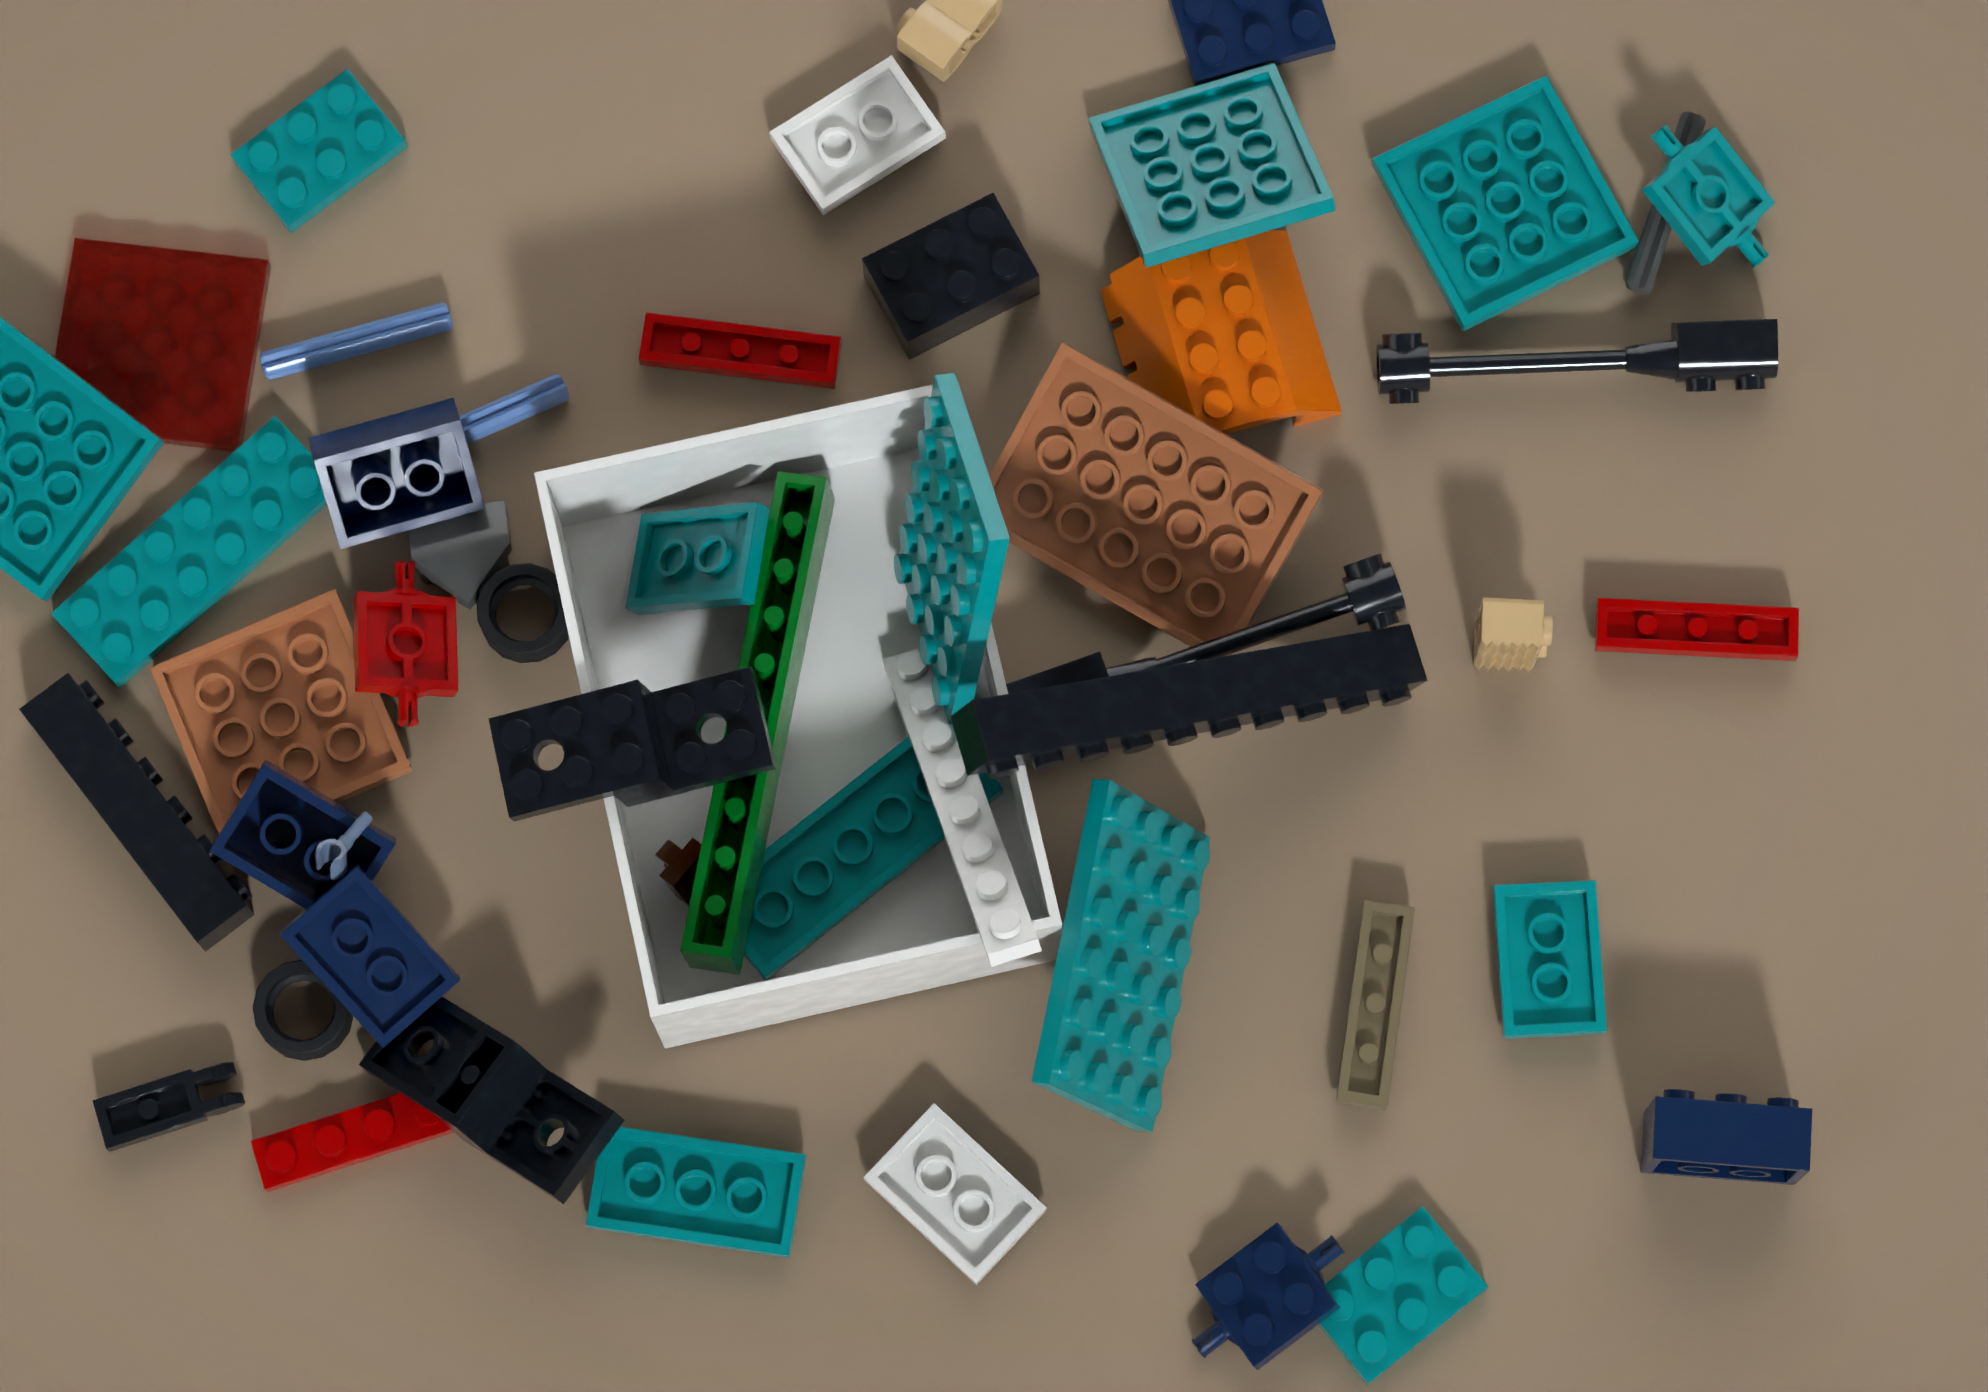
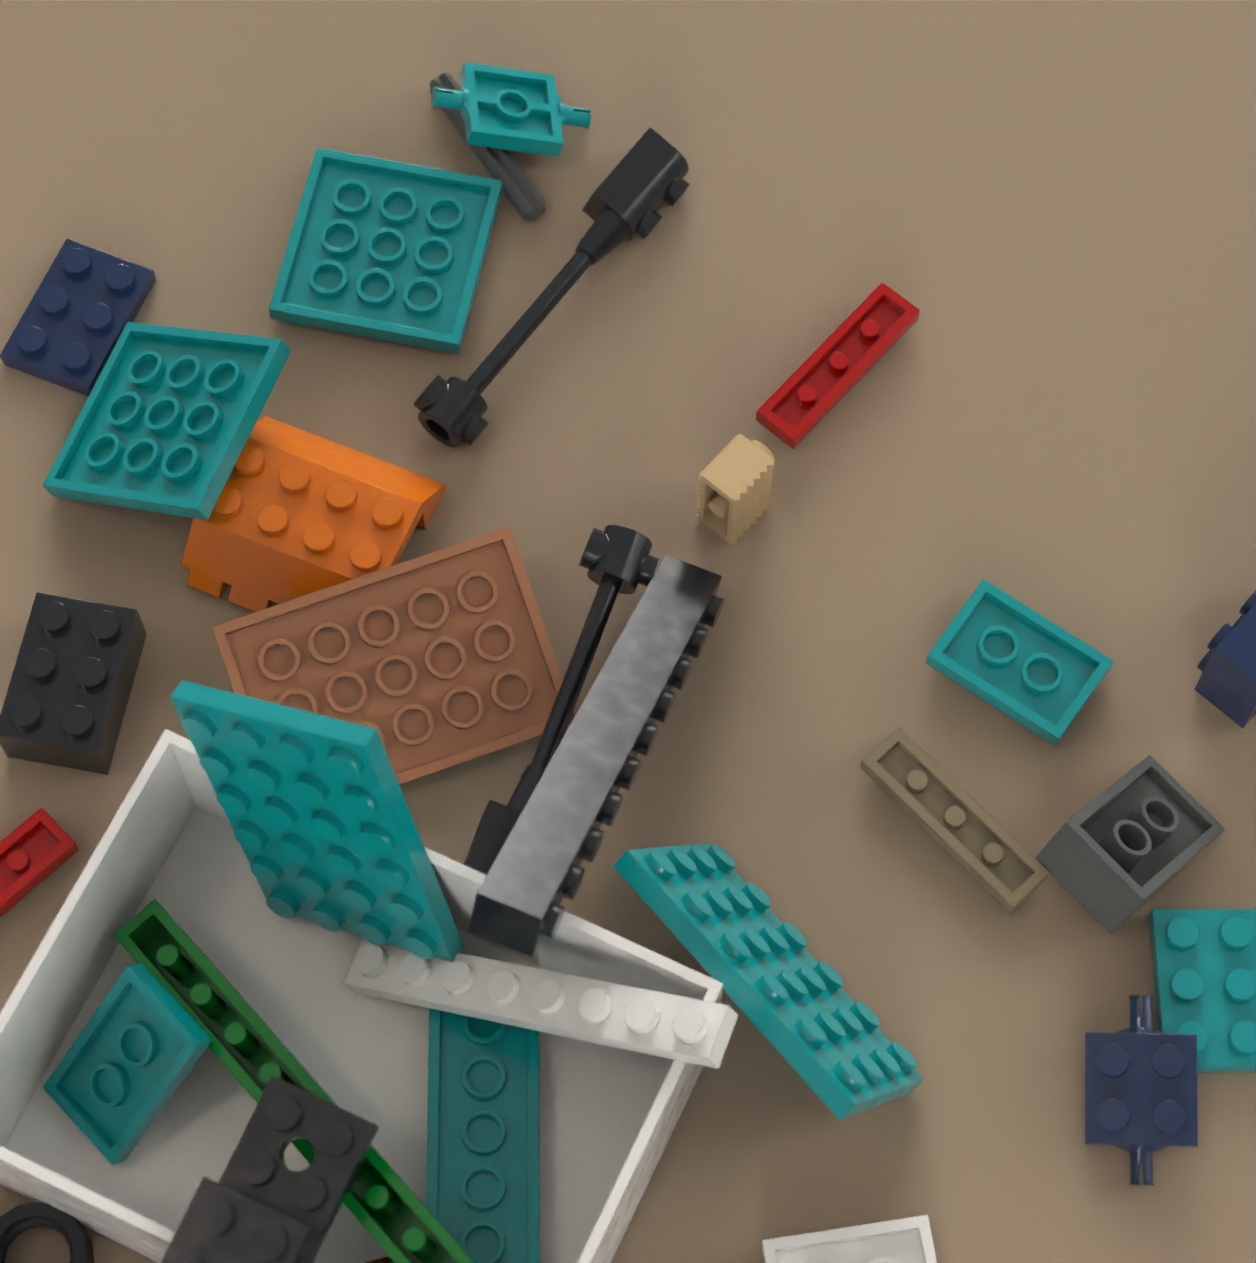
camera: 55 degrees left, 10 degrees down
(1464, 1150) = (1129, 843): none -> dark grey slope

